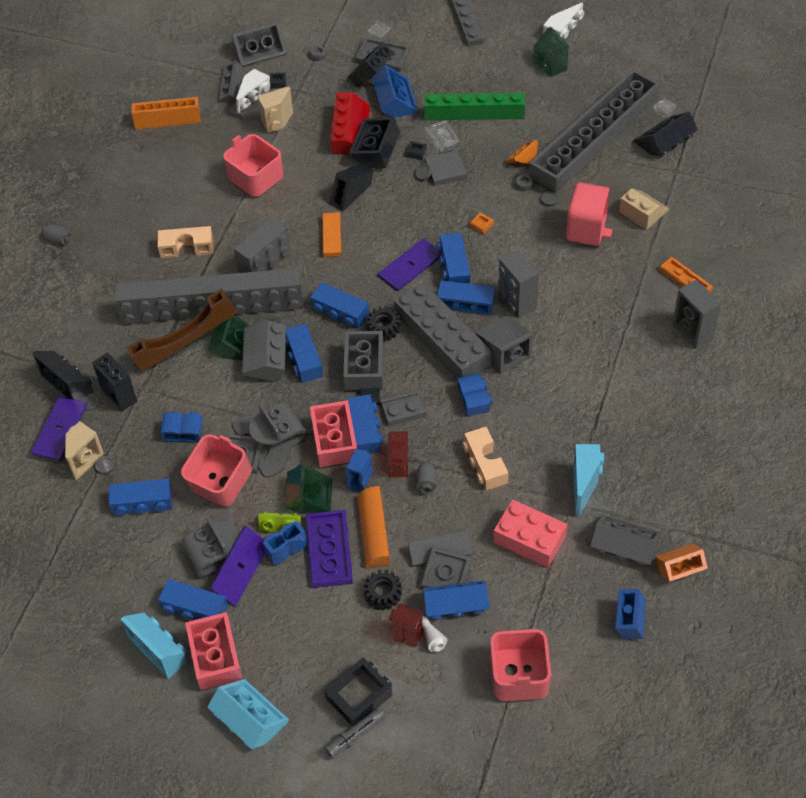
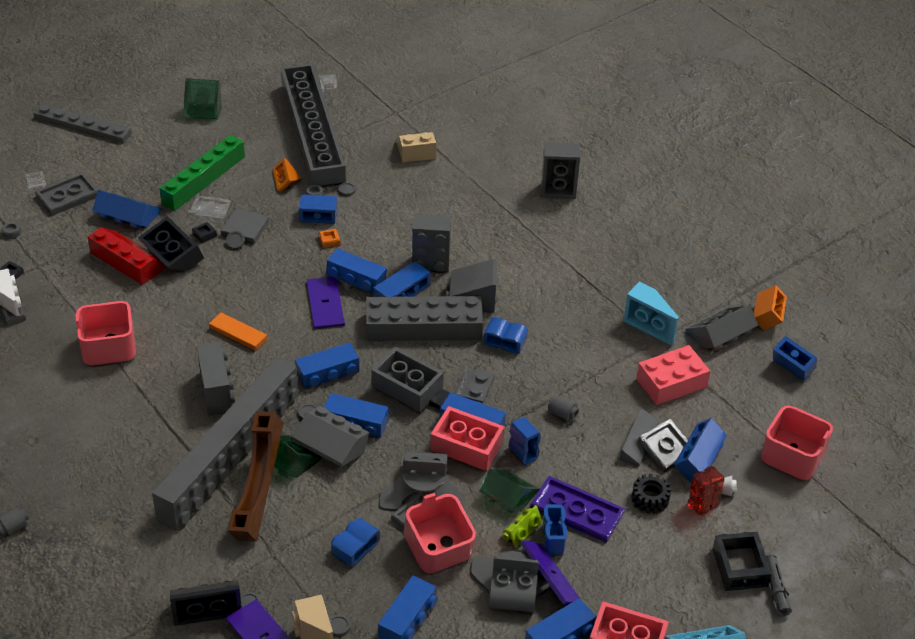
camera: 60 degrees left, 10 degrees down
(115, 380) = (251, 571): black window -> none
(172, 240) = (123, 440): light nougat arch -> none
(275, 108) = (54, 286): tan slope -> none
(350, 185) = (202, 289): black slope -> none
(371, 64) = (84, 199): black window -> none
(373, 528) = (584, 466): orange brick -> none
(384, 315) = (370, 342): black tyre -> none
(398, 454) = (520, 405): clear red brick -> none
(489, 472) = (589, 368): light nougat arch -> none
(503, 195) = (318, 209): none -> blue brick
(565, 20) = (174, 80): white slope -> none
(588, 214) = (401, 169): coral piece -> none
(667, 134) = (357, 93): black slope -> none
(681, 274) = (506, 165): orange tile -> none

